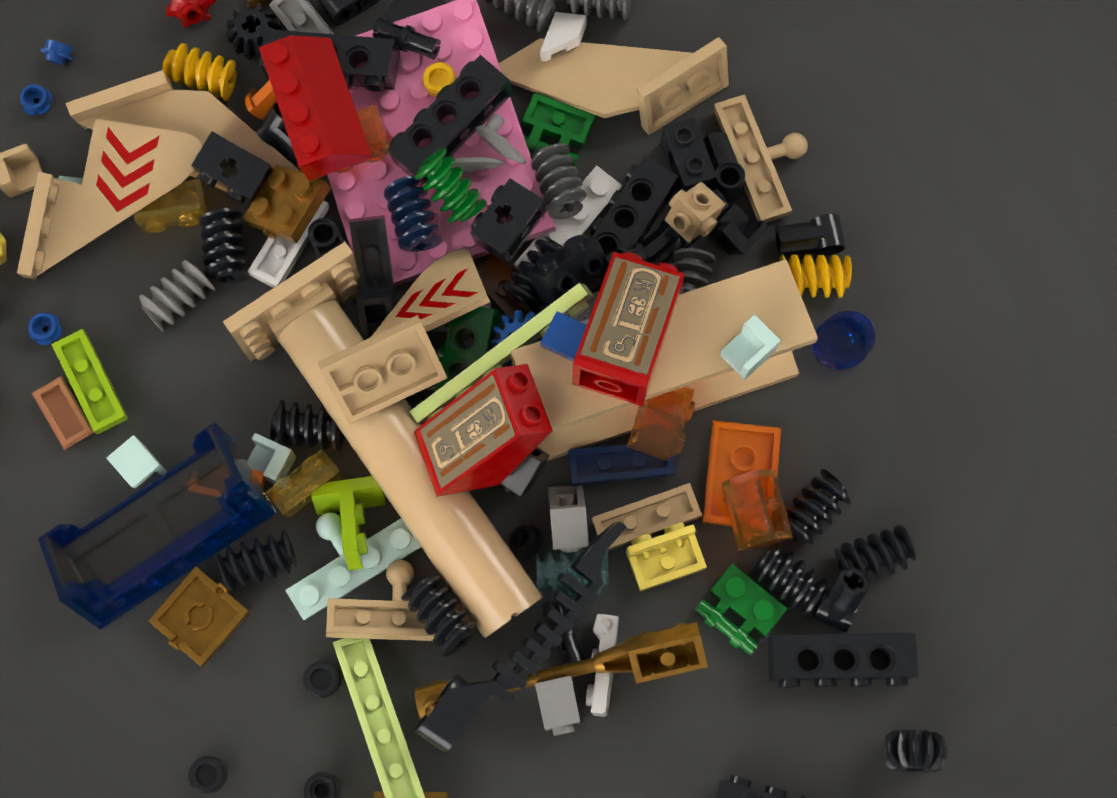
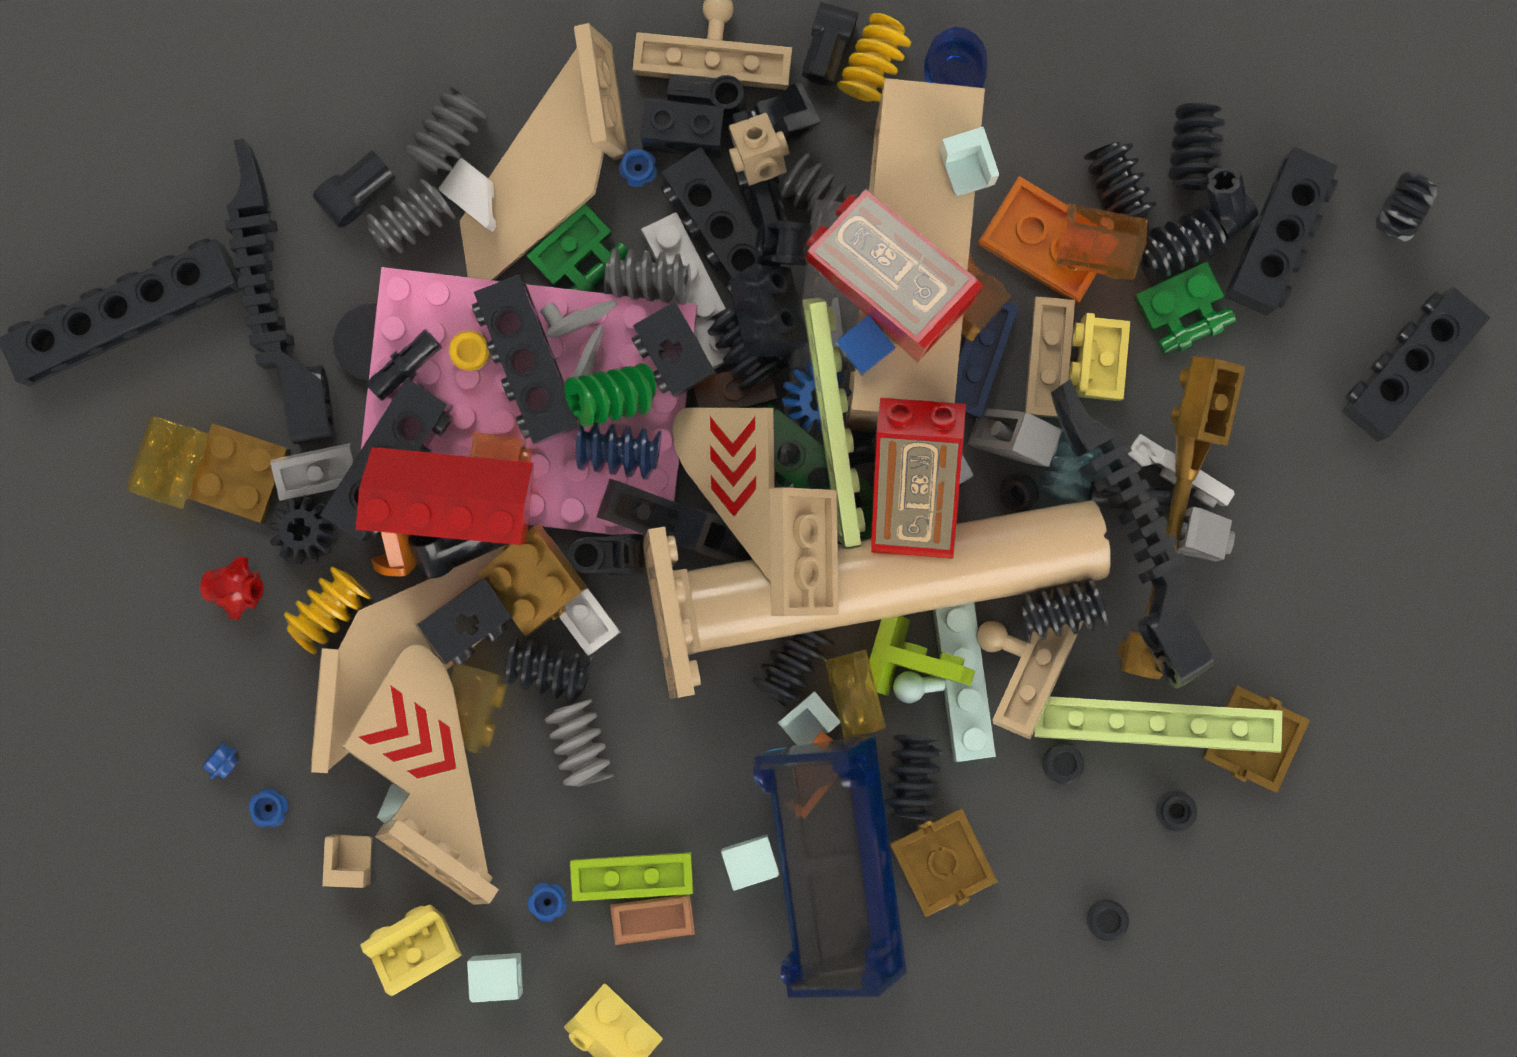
camera: 65 degrees left, 10 degrees up
(643, 135) = (638, 157): none -> blue plate

